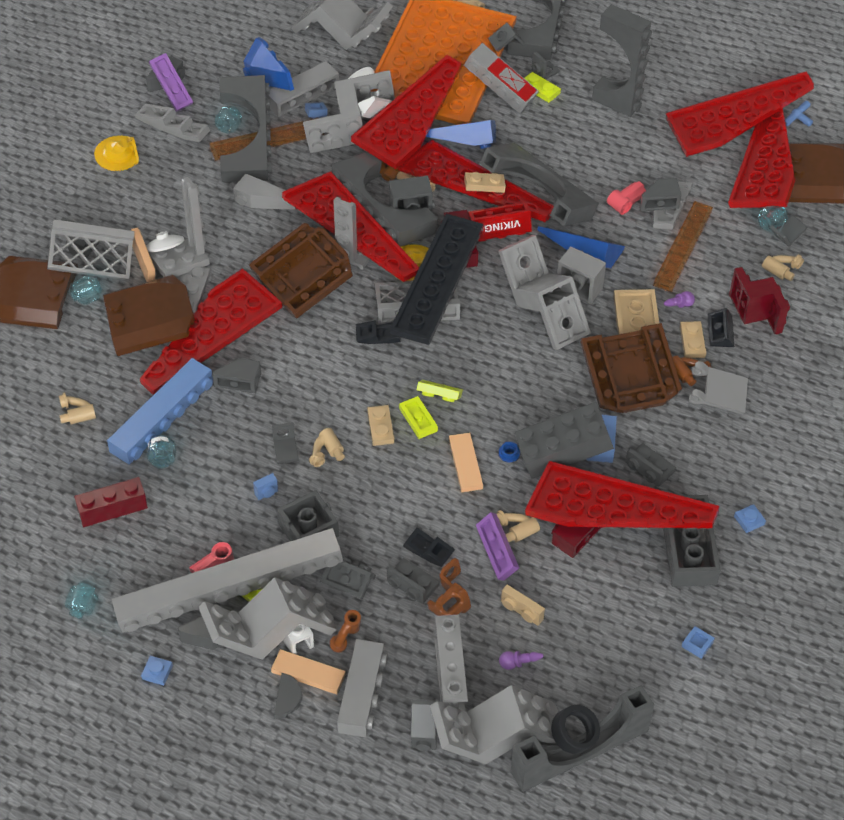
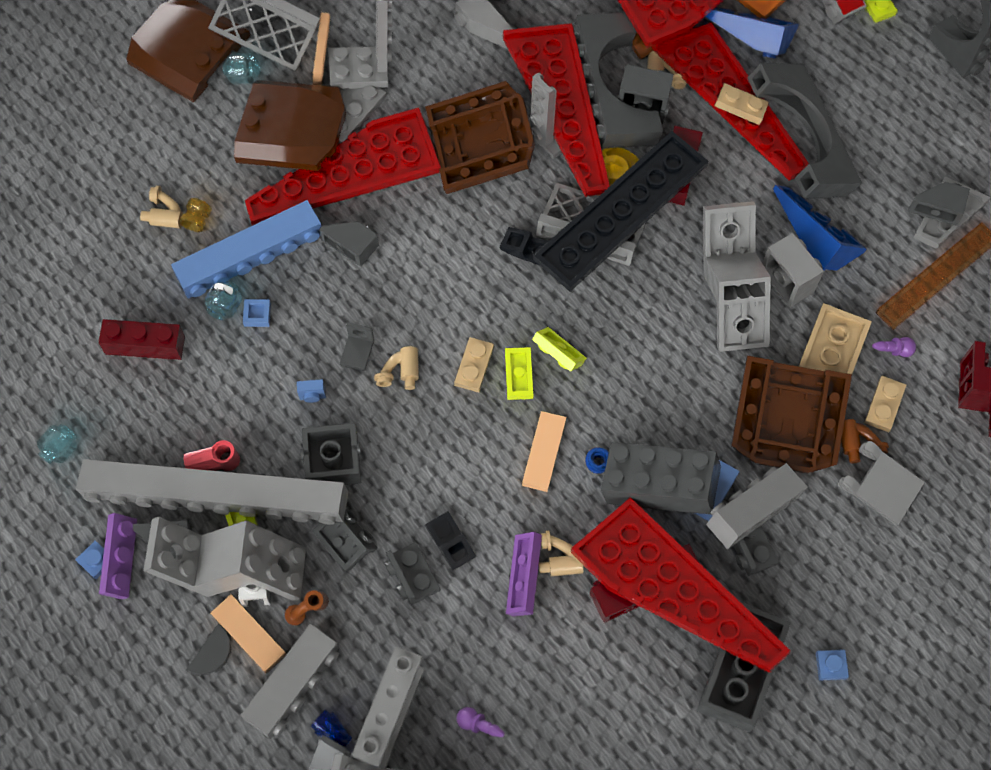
camera: 25 degrees right, 15 degrees up
(105, 402) = (195, 215): none -> clear yellow wheel
(164, 242) = (351, 42): white dish -> none
(175, 658) = (118, 556): none -> medium lavender plate
(192, 451) = (256, 313): none -> medium blue plate
(404, 706) = (330, 726): none -> clear blue cone
(452, 590) = (446, 628): dark orange piece -> none
(503, 220) = (736, 161): red brick -> none
(523, 605) = (506, 650): tan plate -> none
(623, 200) = (896, 187): coral piece -> none
(640, 432) = (756, 505): none -> light grey brick
(721, 328) = (926, 403): black slope -> none

